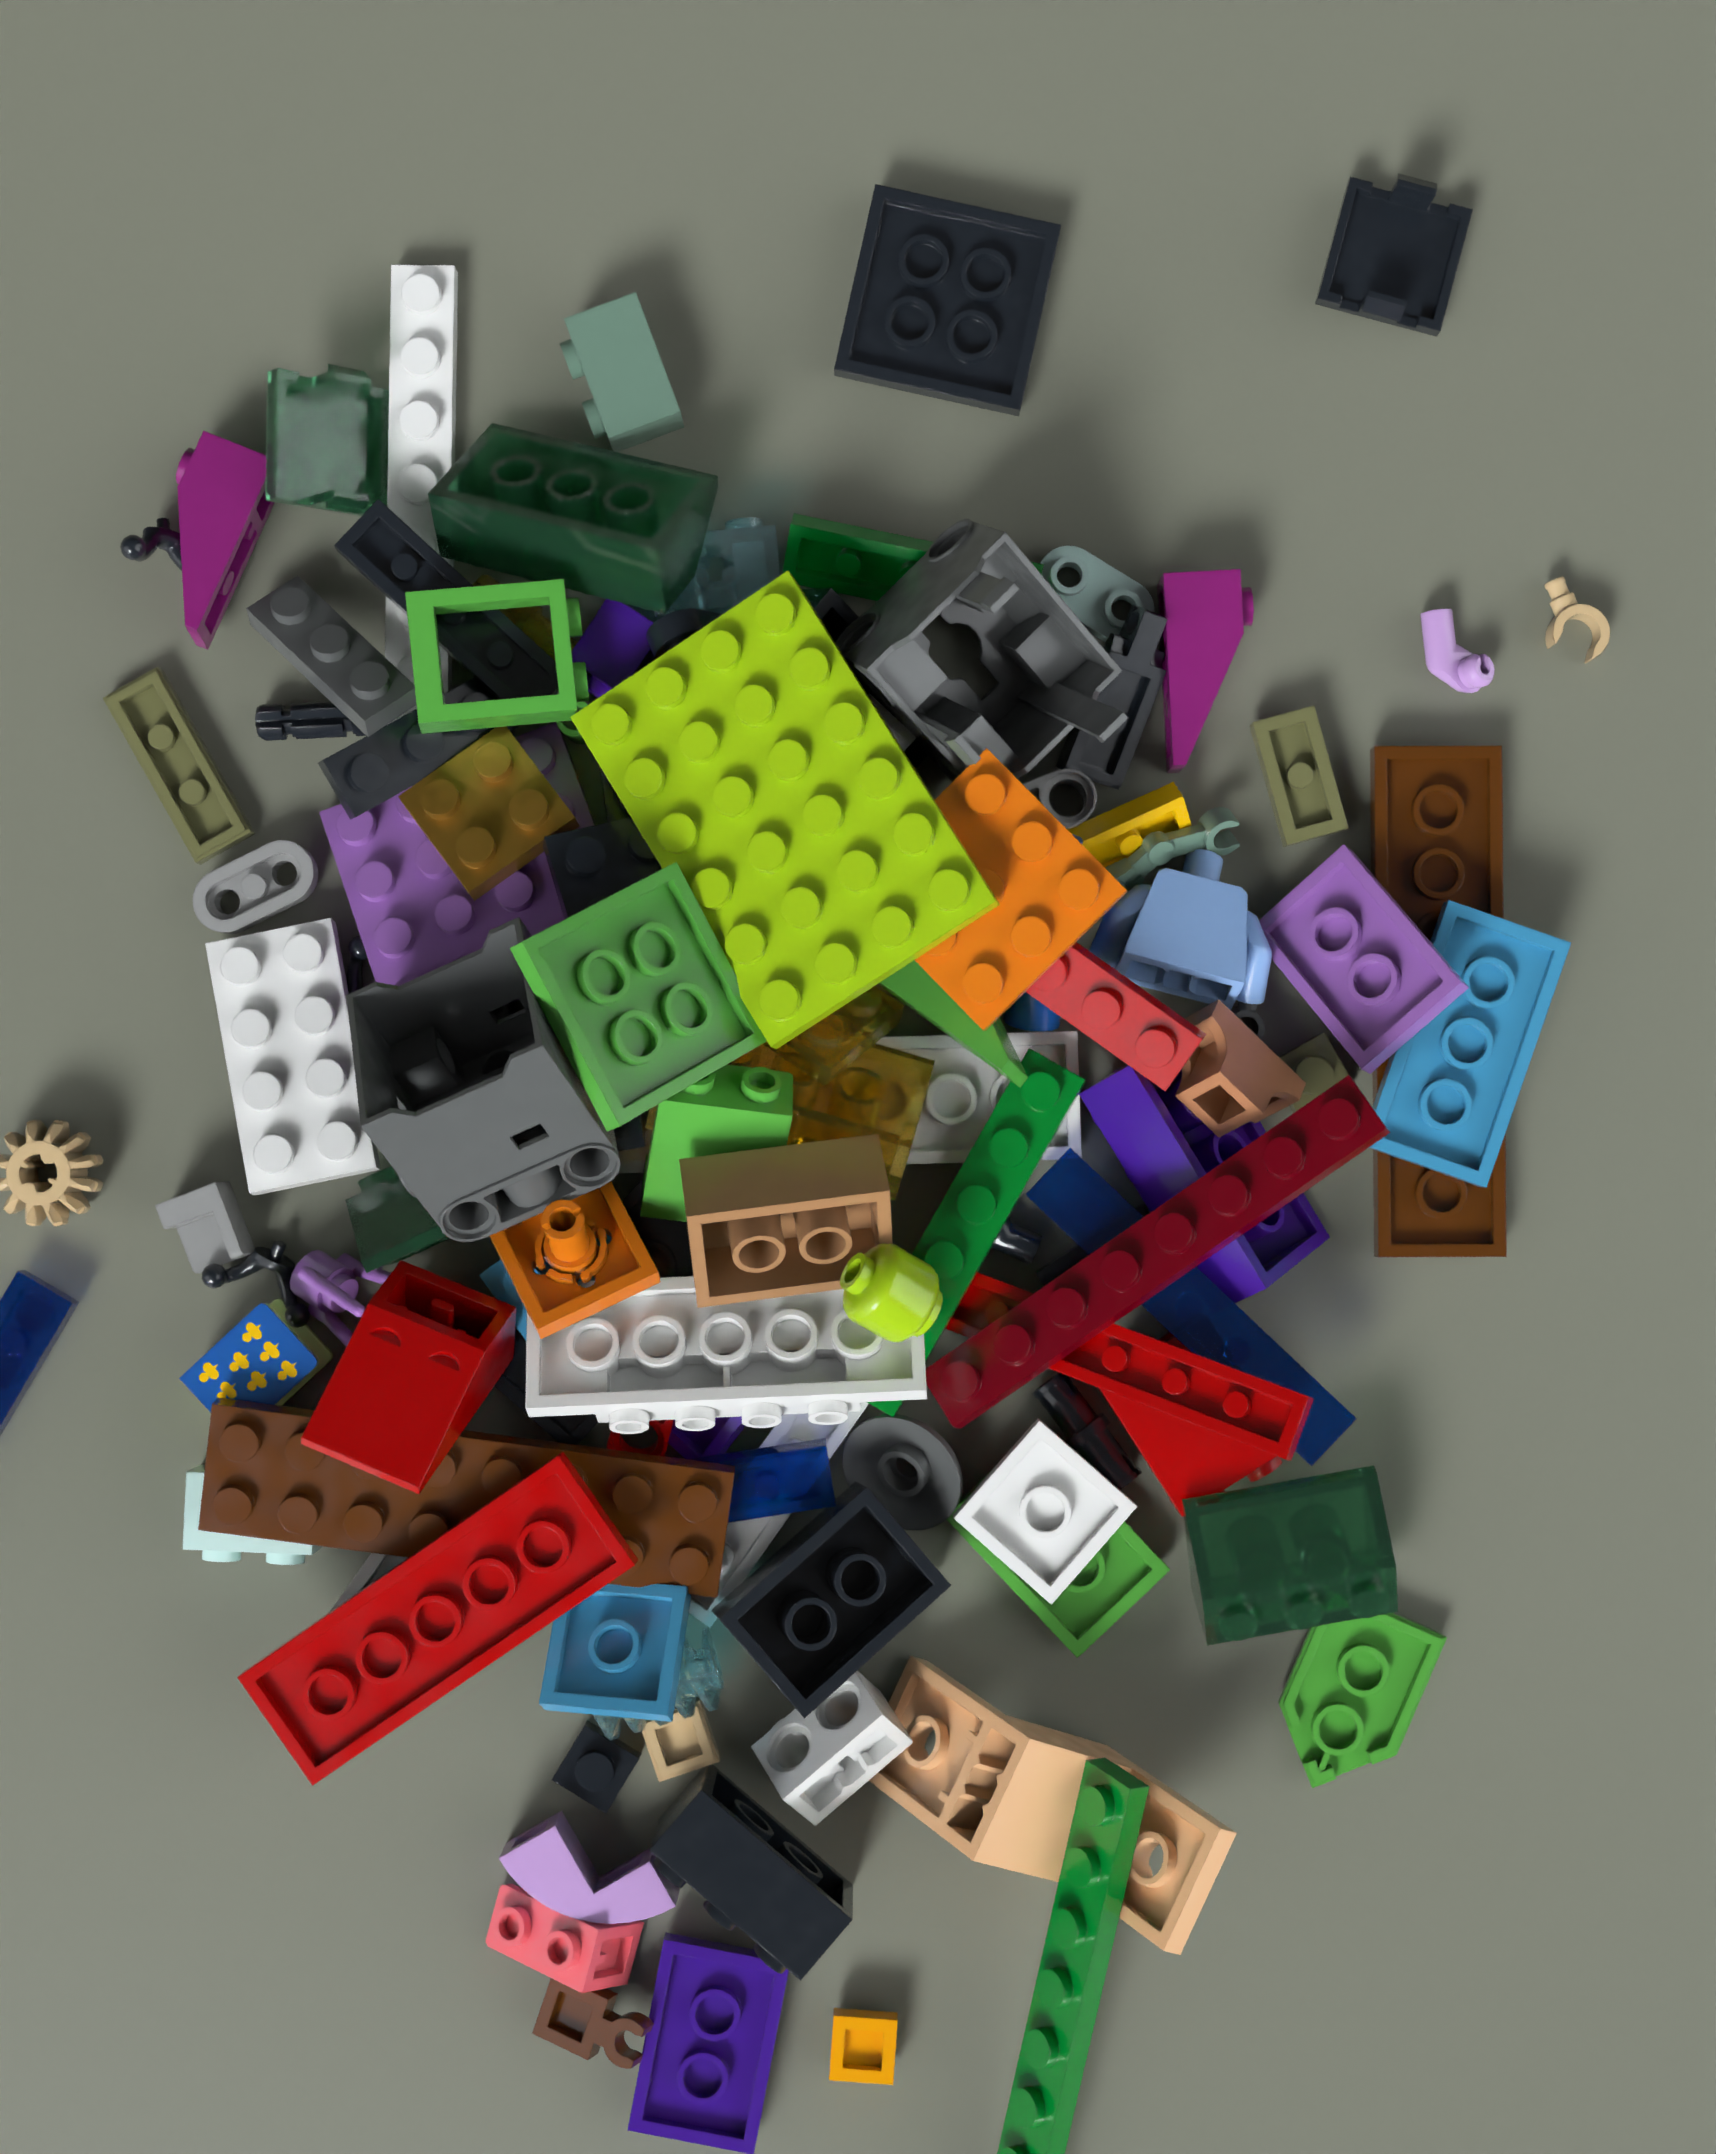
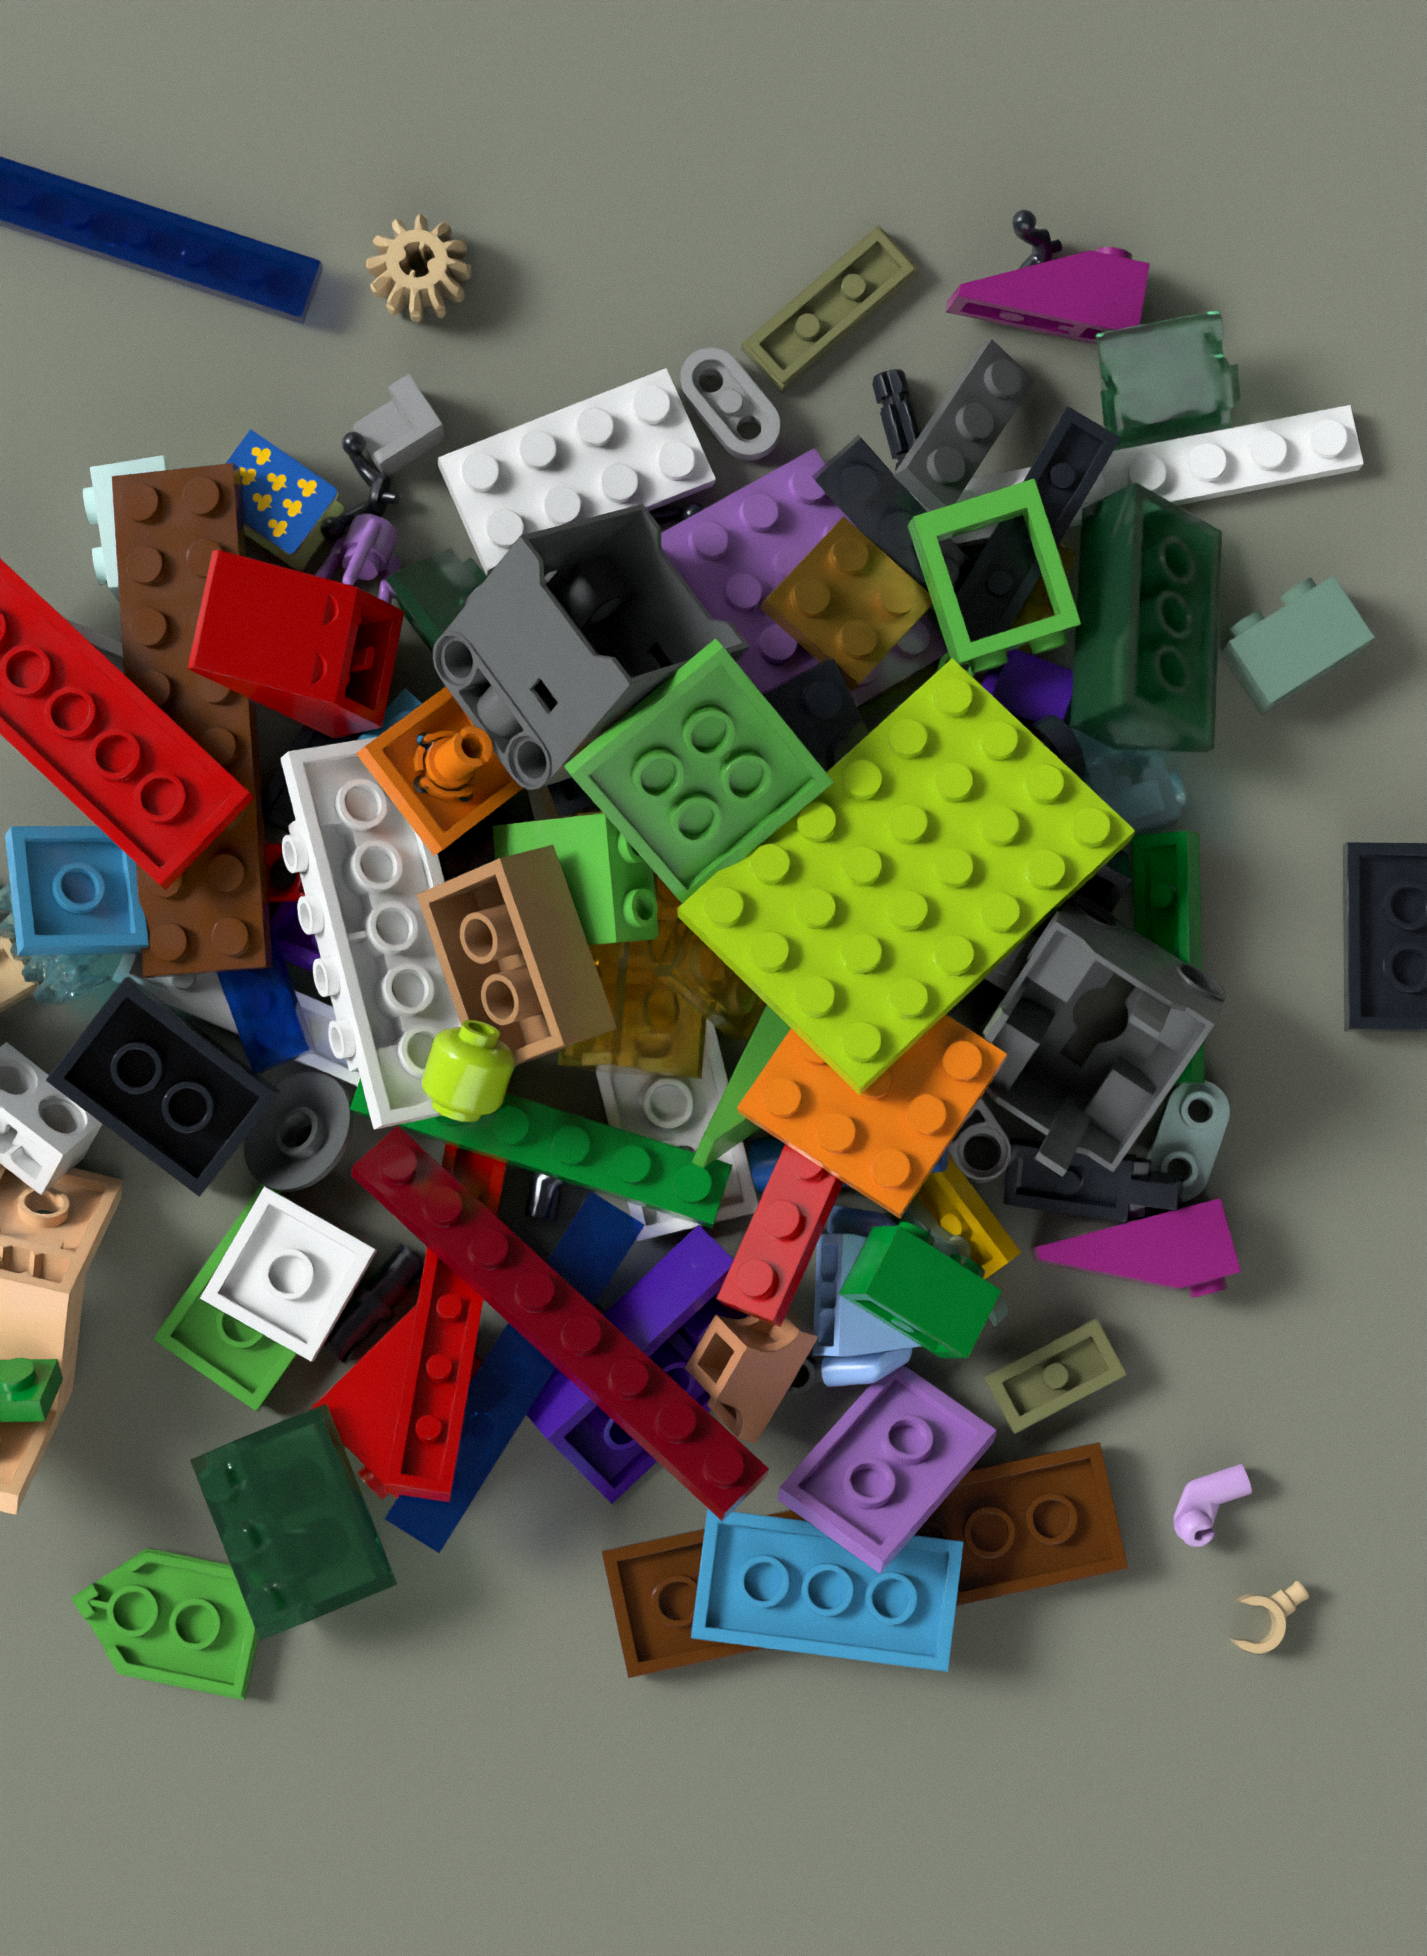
camera: 70 degrees right, 5 degrees down
(1197, 887) = (921, 1290): none -> green brick
(1316, 1065) = (778, 1451): olive plate -> none

